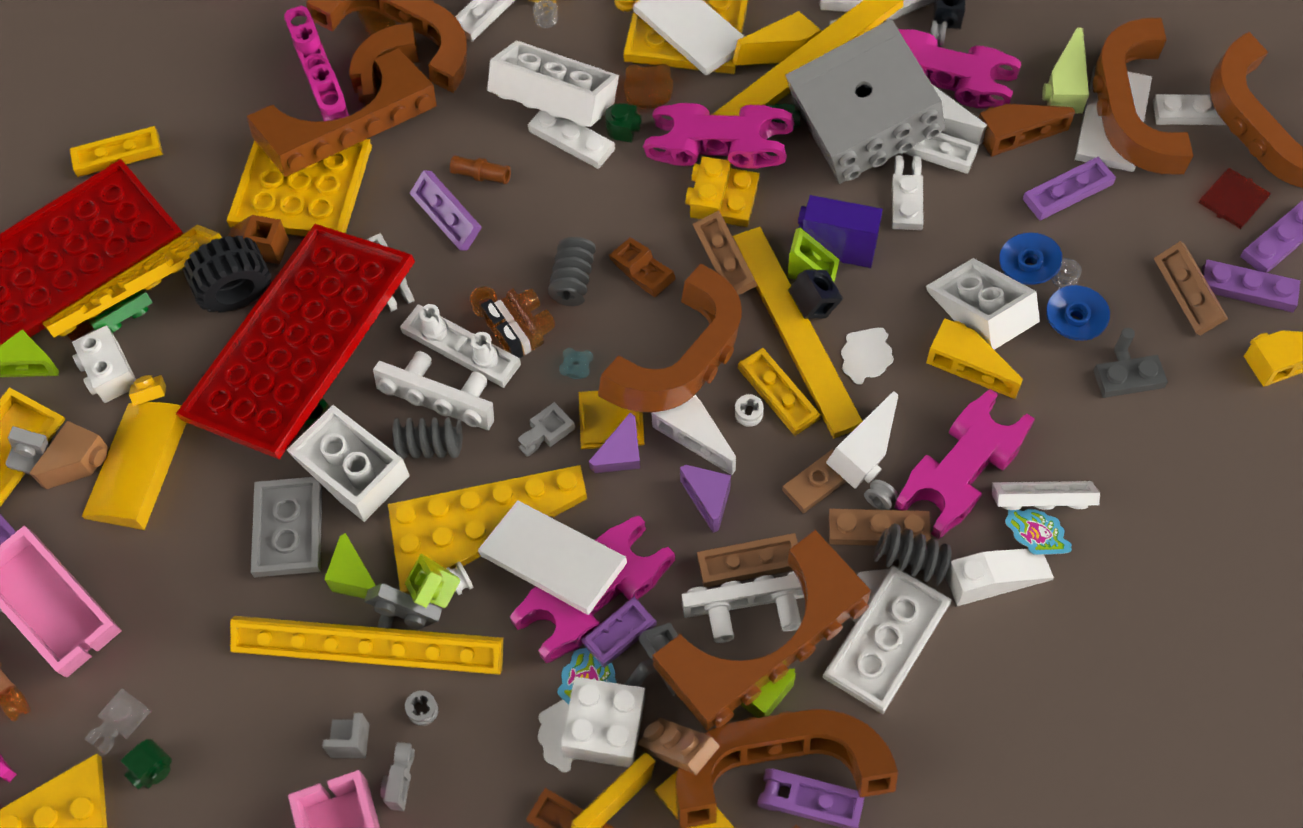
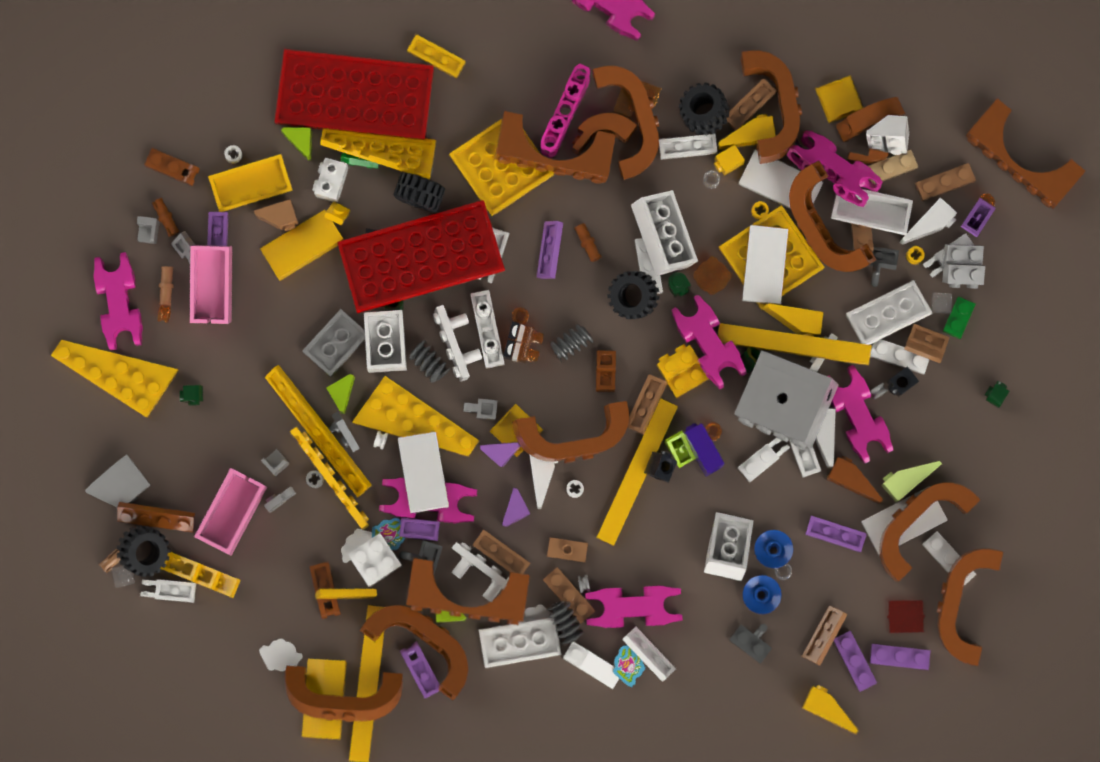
camera: 45 degrees right, 20 degrees up
(25, 450) = (260, 198): light grey bracket -> none
(121, 716) = (200, 361): clear plate -> none
(266, 233) = (451, 179): dark orange slope -> none
(406, 674) = (327, 472): none -> yellow wing
(431, 583) = (364, 433): lime slope -> none
(576, 371) = (532, 390): clear light blue plate -> none
(579, 141) = (618, 291): none -> black tyre
(678, 745) = (389, 600): medium nougat plate -> none
(779, 391) = (597, 493): yellow tile -> none
(865, 446) = (600, 557): white slope -> none
(866, 354) = (654, 515): white sticker -> none
(972, 358) = (691, 560): yellow slope -> none

